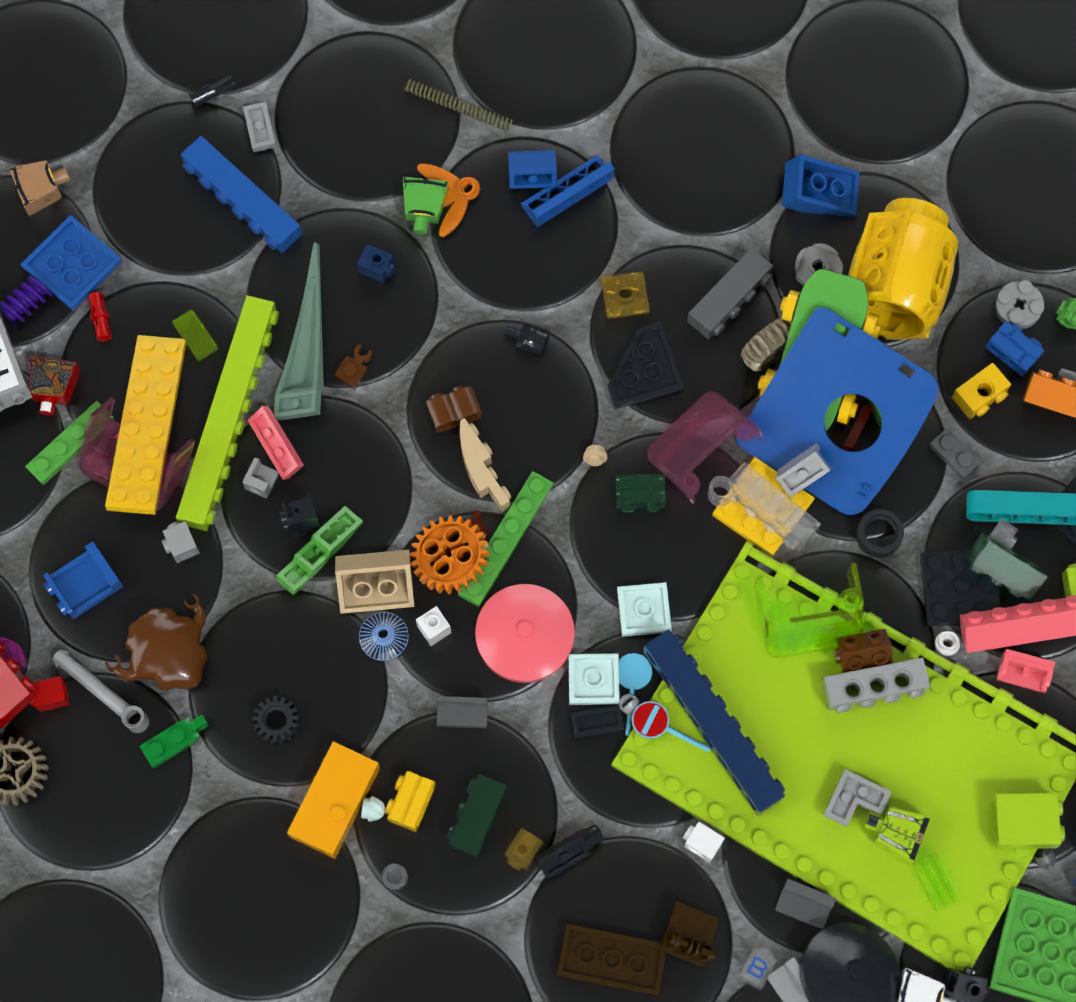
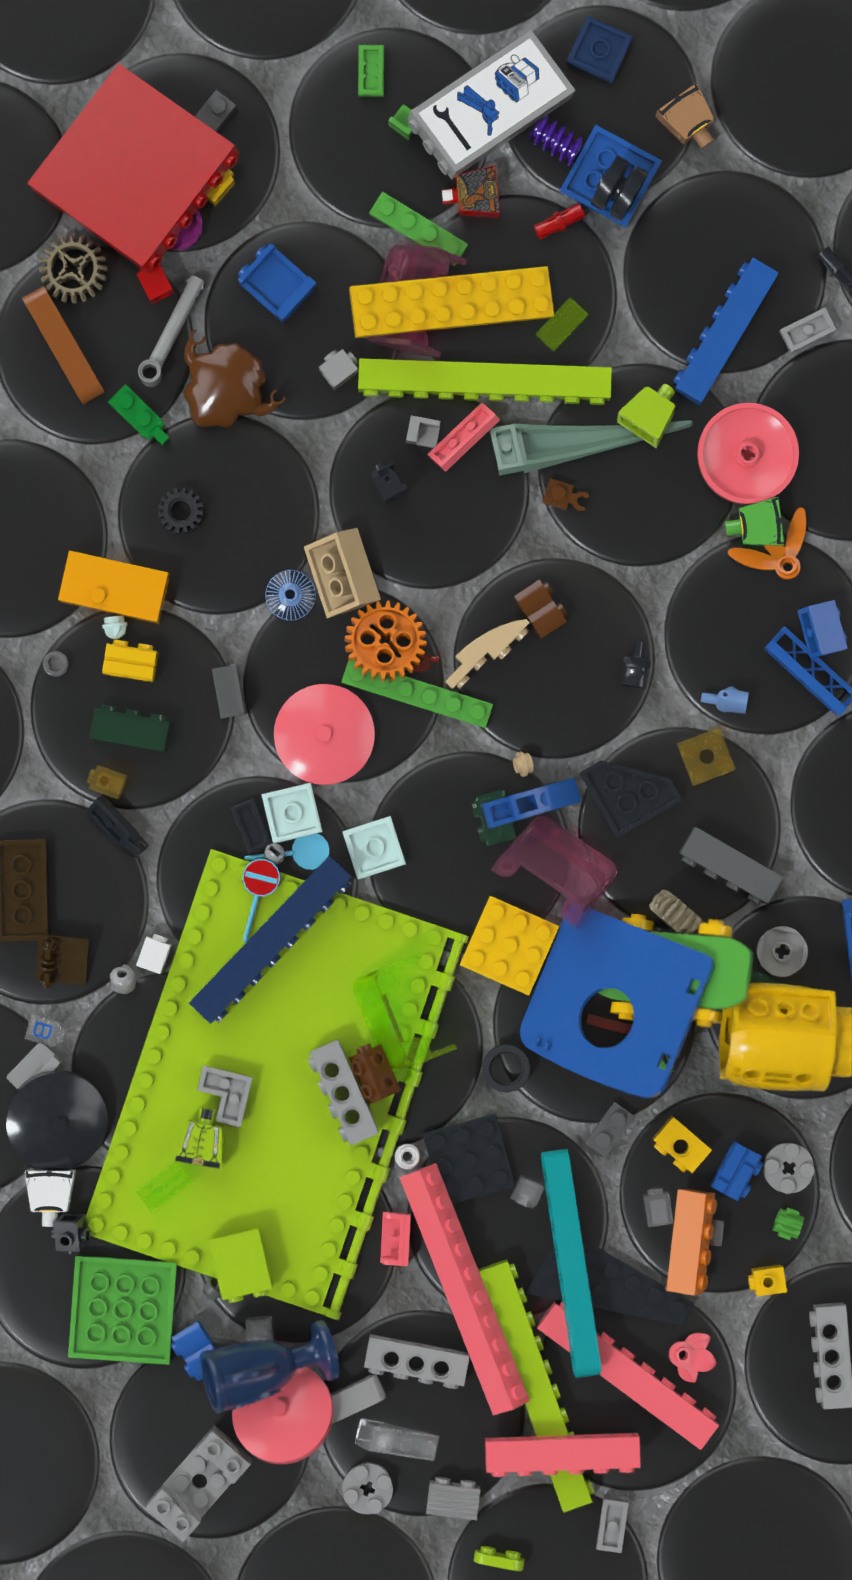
camera: 75 degrees right, 15 degrees up
(84, 248) = (621, 189): none -> black wheel
(84, 797) = (63, 345): none -> dark orange beam
(299, 273) = (649, 414): none -> lime torso
(319, 550) = (362, 509): bright green slope -> none
(357, 197) = (748, 453): none -> coral dish
(376, 264) = (680, 492): dark blue brick -> none
(433, 626) = (308, 642): white brick -> none
(578, 262) = (728, 700): none -> medium blue piece
(634, 453) = (531, 803): none -> blue slope
(722, 878) = (123, 979): none -> light grey piece
(767, 504) = (505, 950): clear hinge -> none
(802, 470) = (549, 976): light grey panel -> none
(805, 904) = (116, 1064): dark grey panel -> none
(1005, 567) = (493, 1200): clear green brick -> none
(1037, 425) = (657, 1207): none -> clear brick

